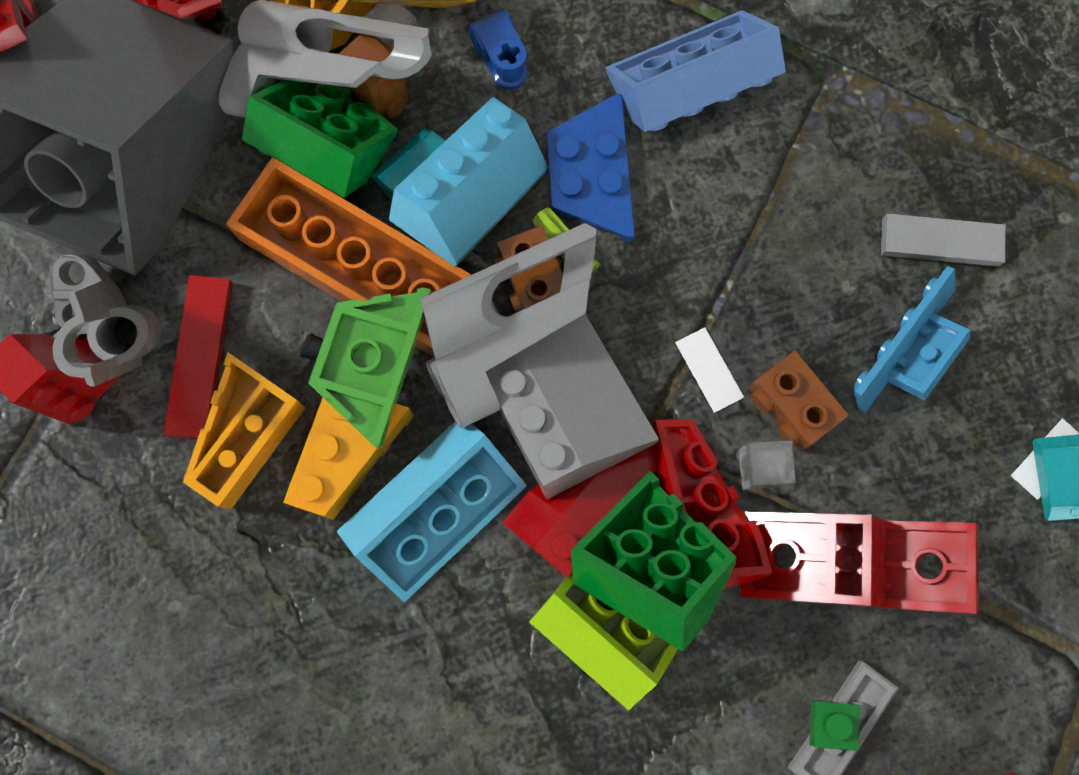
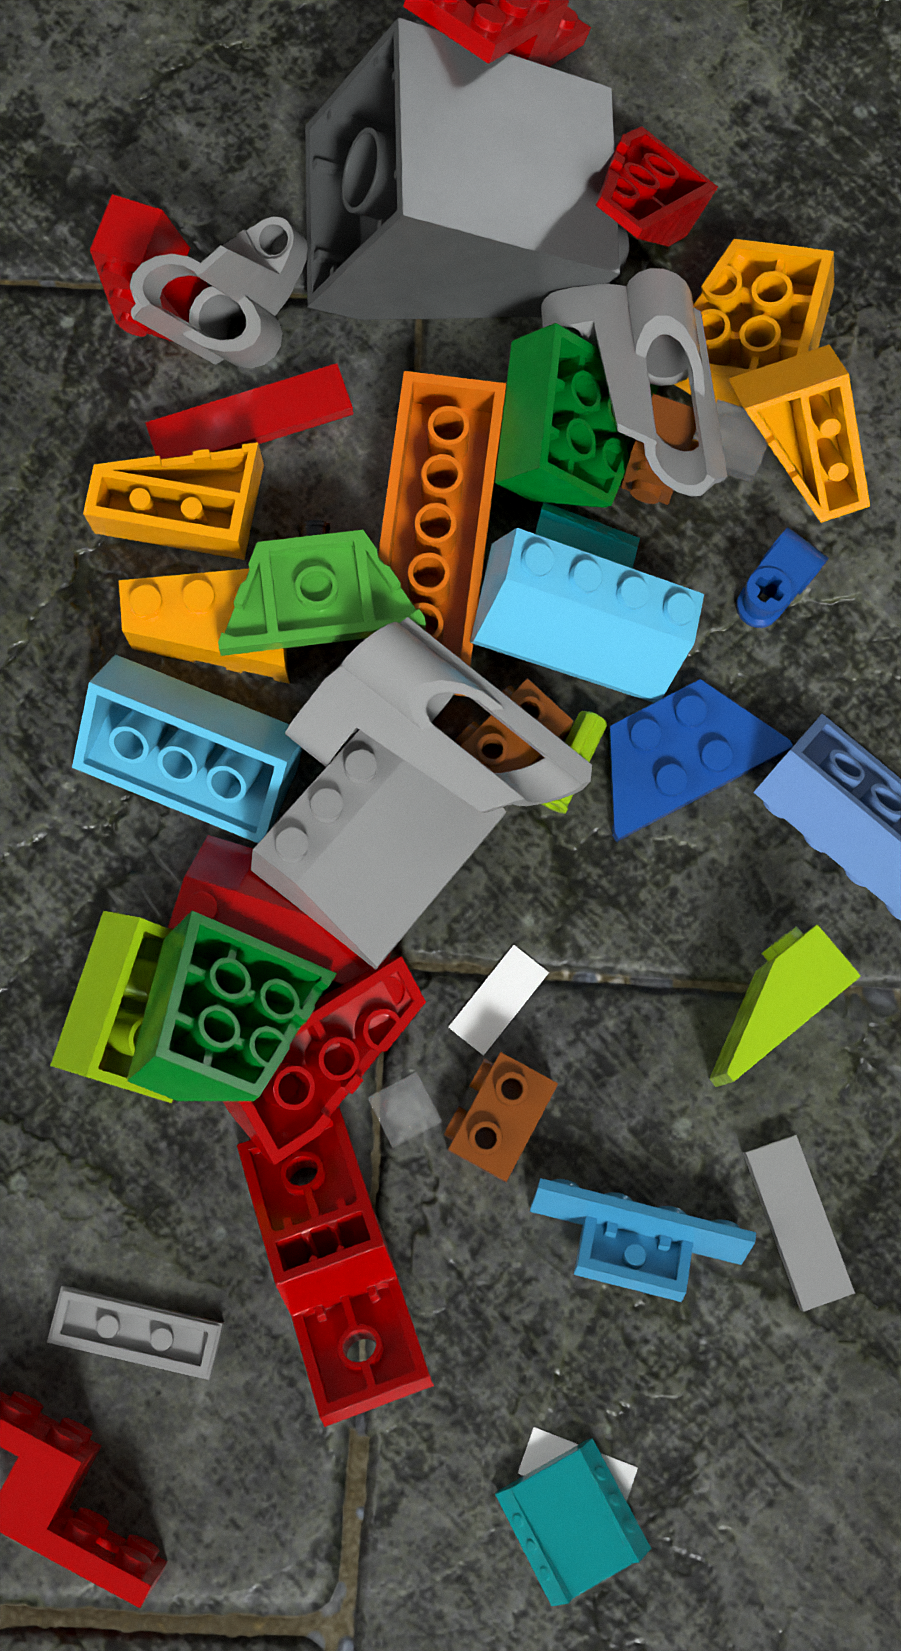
camera: 65 degrees right, 0 degrees up
(801, 179) = (785, 992): none -> lime slope
(834, 725) = (131, 1315): green plate -> none

